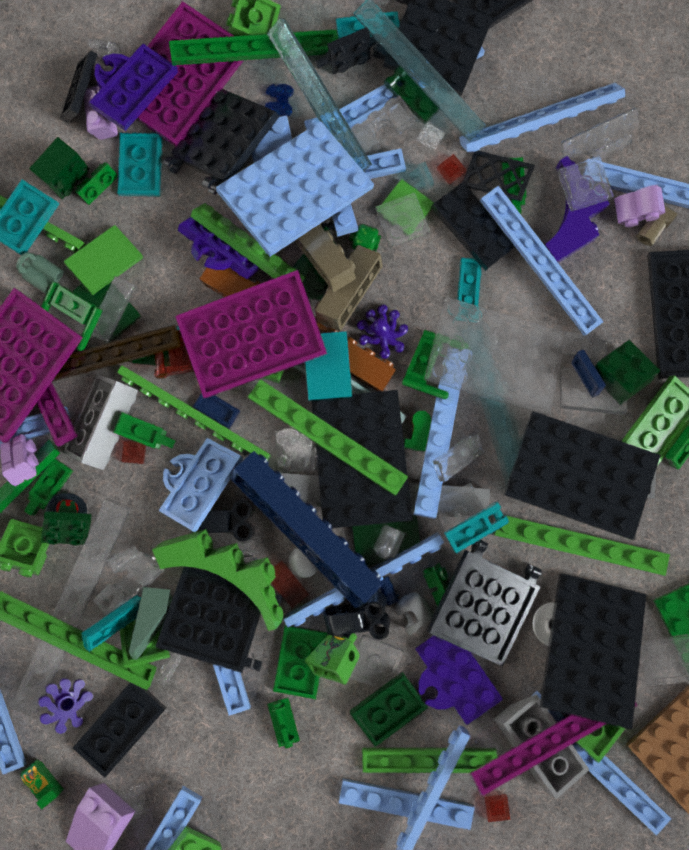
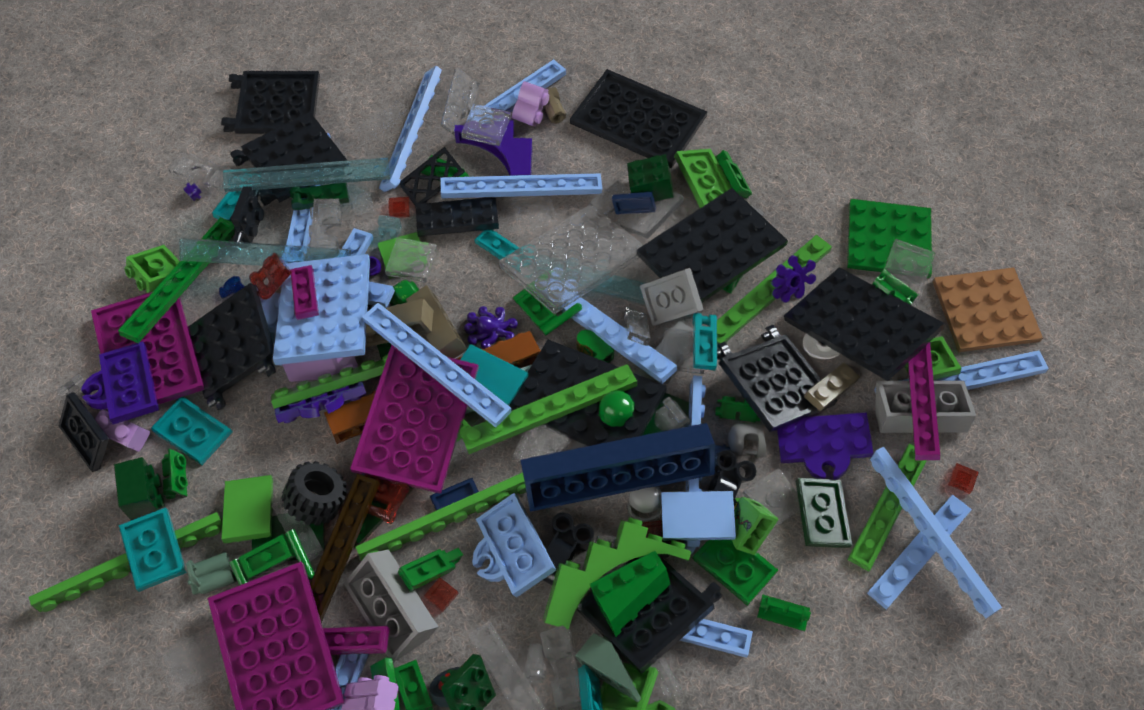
camera: 60 degrees left, 25 degrees down
(158, 298) = (307, 505): none -> black tyre
(212, 599) = (630, 589): none -> green wedge
(295, 162) = (304, 292): none -> magenta tile
(299, 320) = (437, 365): none -> light blue plate
(304, 122) = (275, 270): none -> clear red plate
(312, 615) = (698, 515): none -> light blue tile
(360, 493) = (616, 408): none -> green hair
(378, 191) = (375, 266): none -> dark purple plate
(503, 472) = (671, 297): none -> light grey plate
(511, 655) = (832, 386): none -> dark tan plate
(599, 563) = (792, 279): none -> dark purple animal
(650, 658) = (895, 287): none -> green hinge

